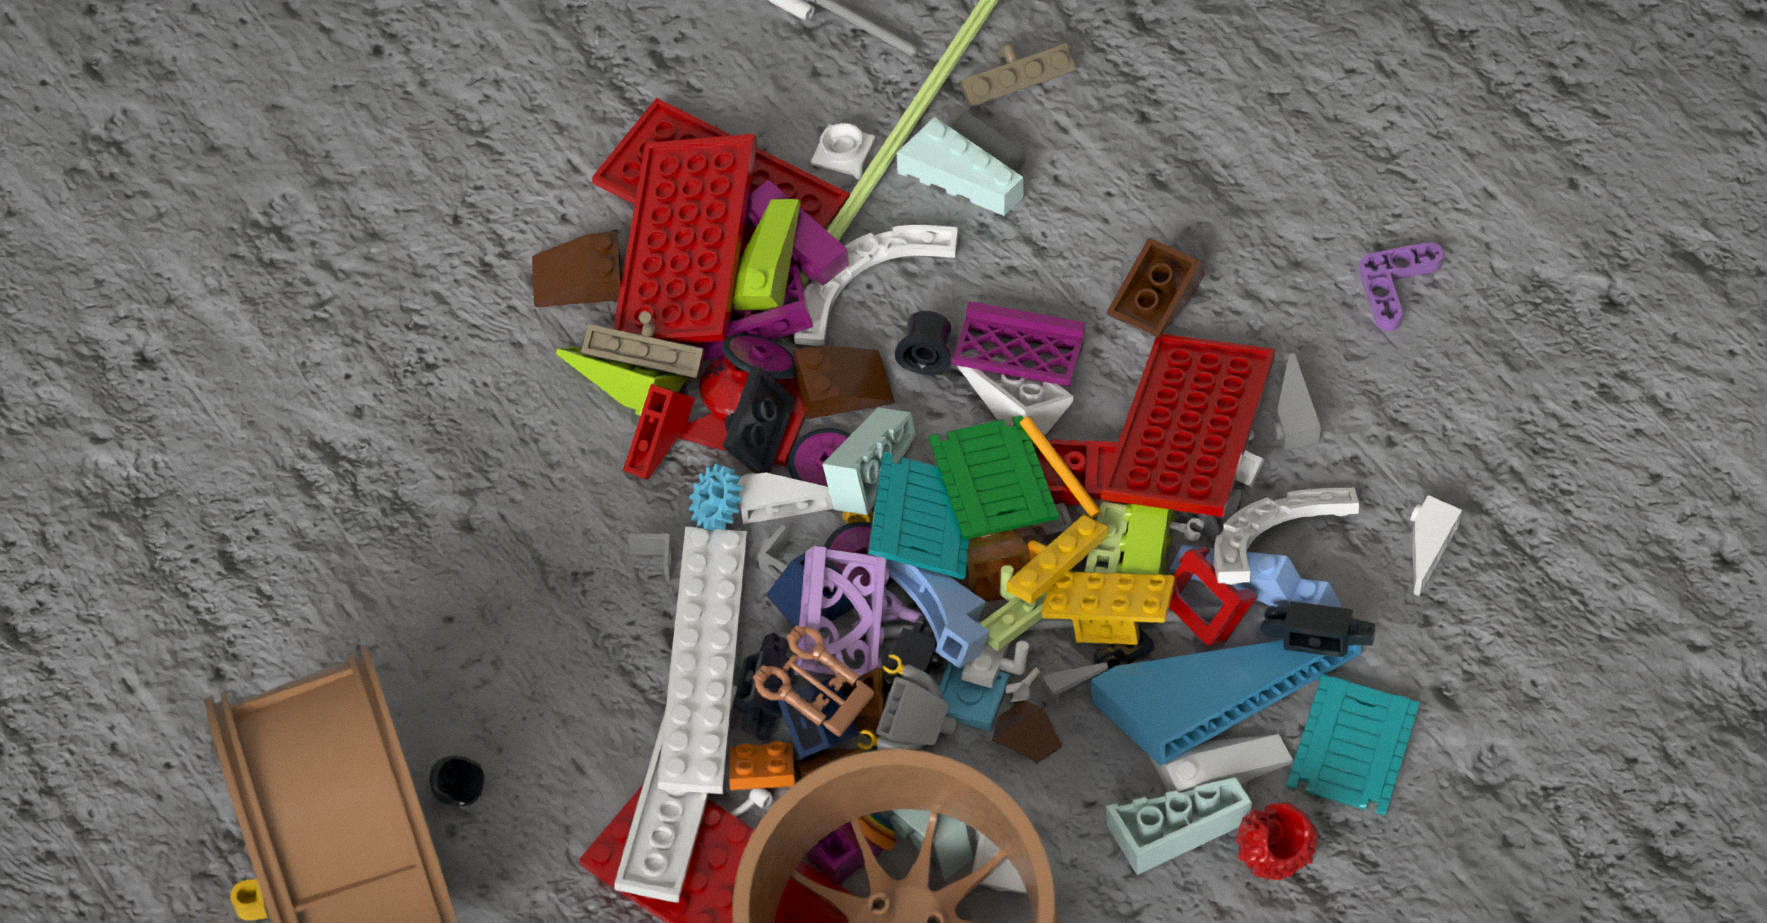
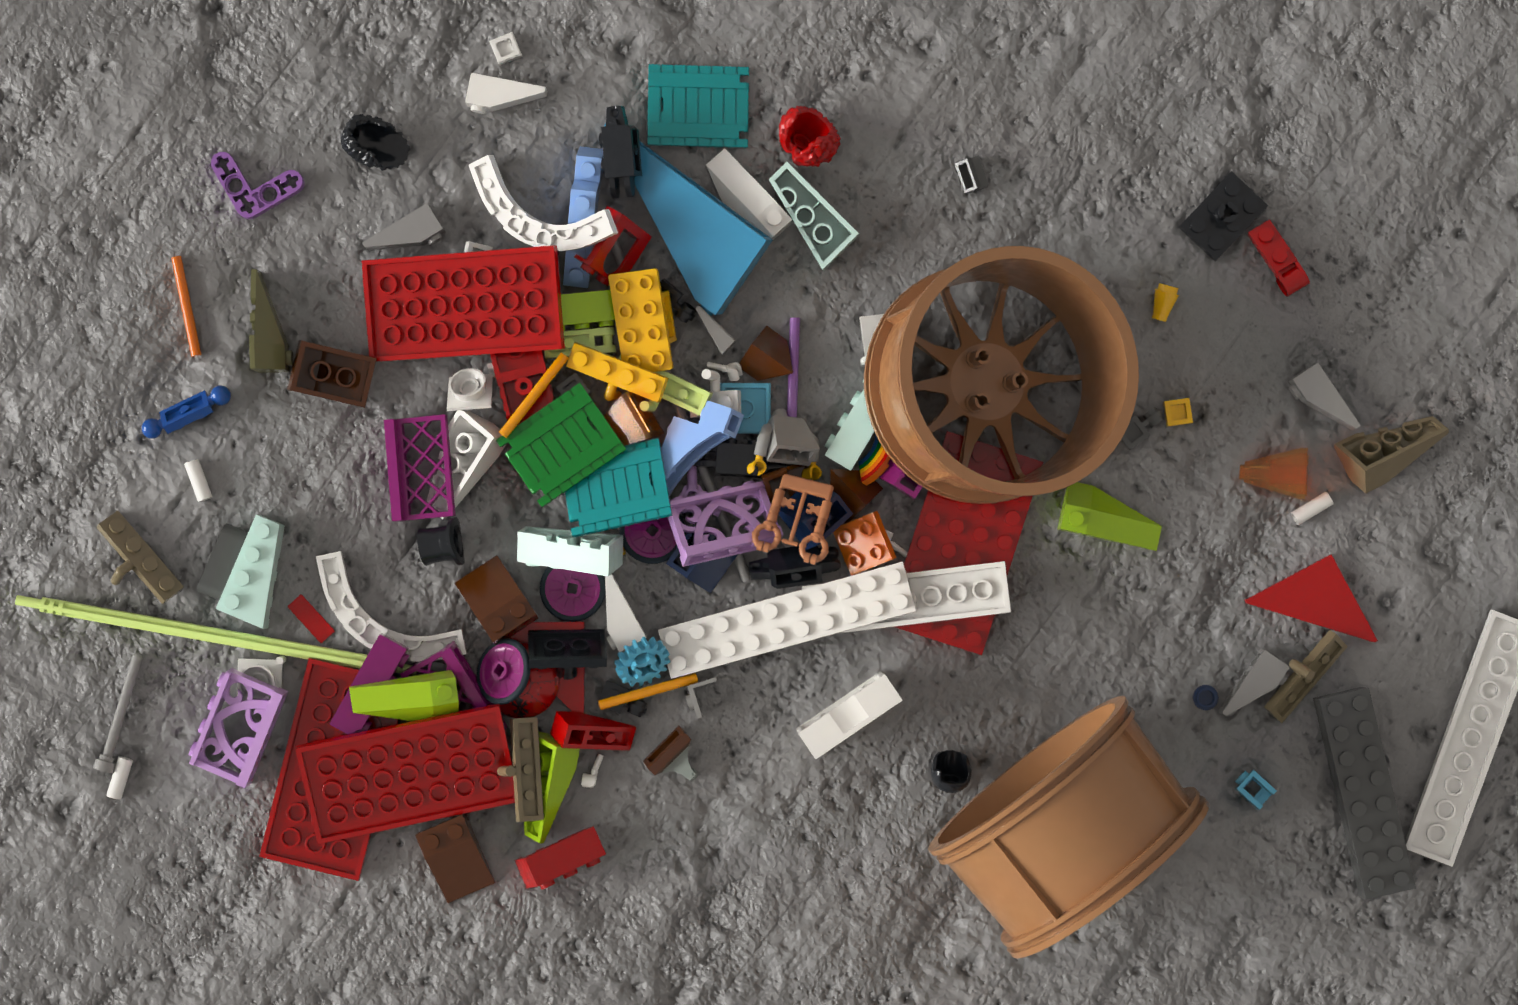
camera: 115 degrees left, 30 degrees up
(531, 364) = (561, 858): none -> red wedge
(566, 671) = (848, 714): none -> white tile
(595, 505) = (672, 756): none -> reddish brown piece
(606, 423) = (589, 780): none -> white hand
(680, 500) = (647, 691): none -> light orange bar
(682, 472) = (635, 707): none -> black plate
(771, 549) = (669, 605): light grey bracket -> none
(803, 87) = (269, 712): none -> lavender fence
(892, 213) = (311, 618): none -> red sticker
(1000, 758) = (793, 378): none -> medium lavender bar
(1082, 147) = (198, 480): none -> white hinge
(1089, 413) = (470, 389): none -> white hat
(1161, 153) = (186, 412): none -> blue plate
(1228, 243) = (268, 345): none -> olive wedge
(1279, 185) = (186, 306): none -> orange bar
(1407, 394) = (374, 142): none -> black piece
(1483, 564) = (505, 48): none -> white tile

